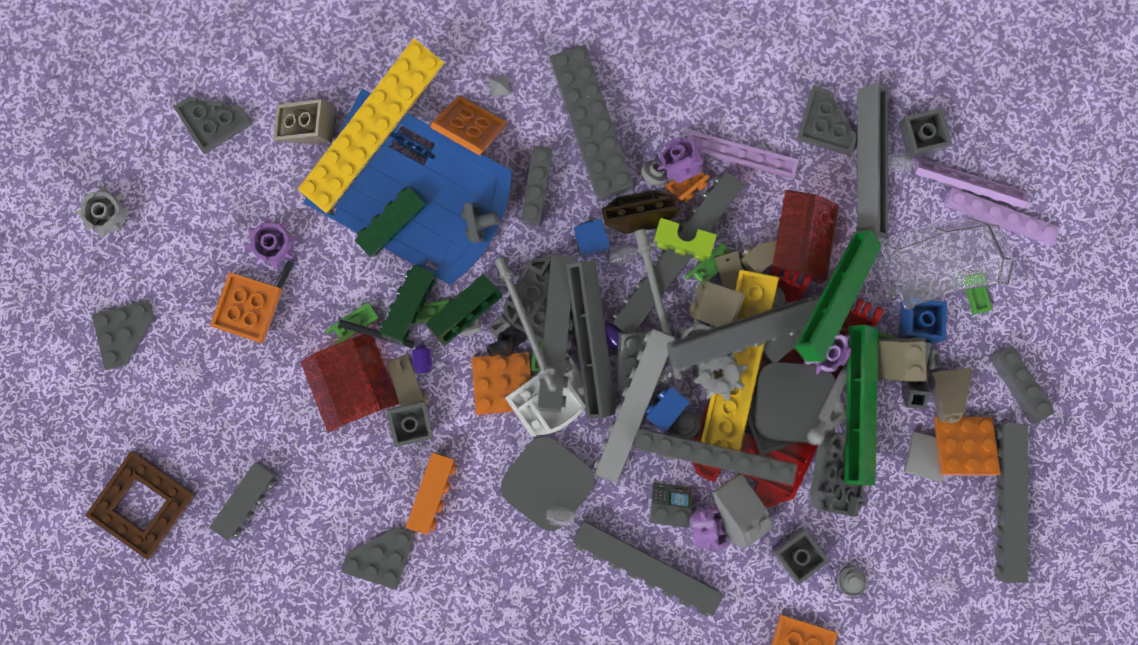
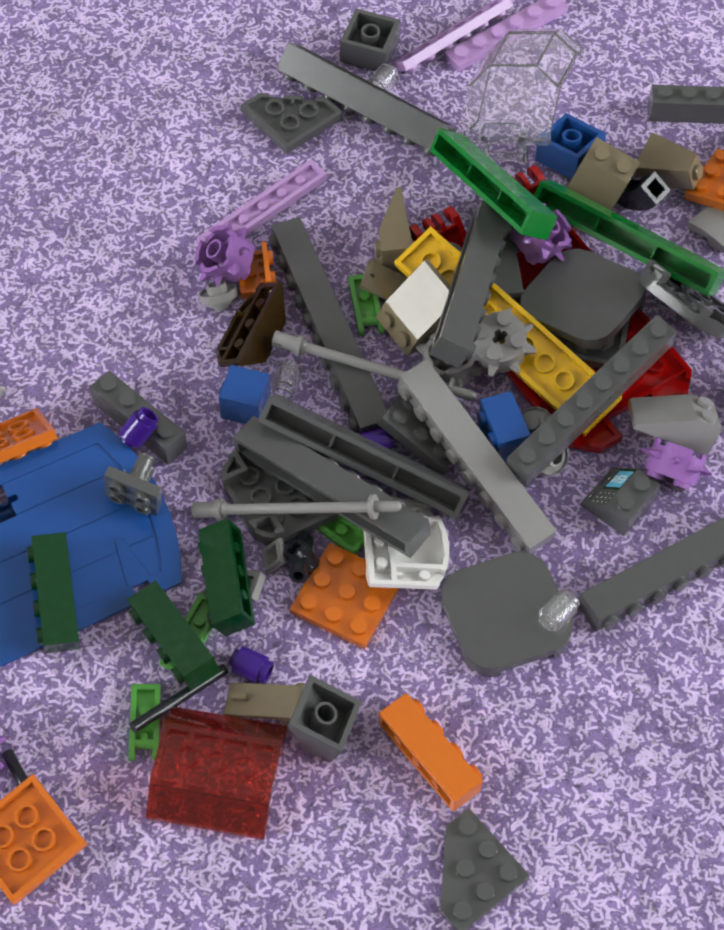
camera: 60 degrees left, 25 degrees down
(520, 196) = (139, 427): none -> dark purple brick
(591, 123) = (111, 323): dark grey brick -> none
(699, 247) = (304, 312): lime arch -> none
(806, 234) = (401, 182): clear red slope -> none
(816, 435) = (616, 259): light grey plate -> none
(978, 300) = (579, 95): bright green tile -> none

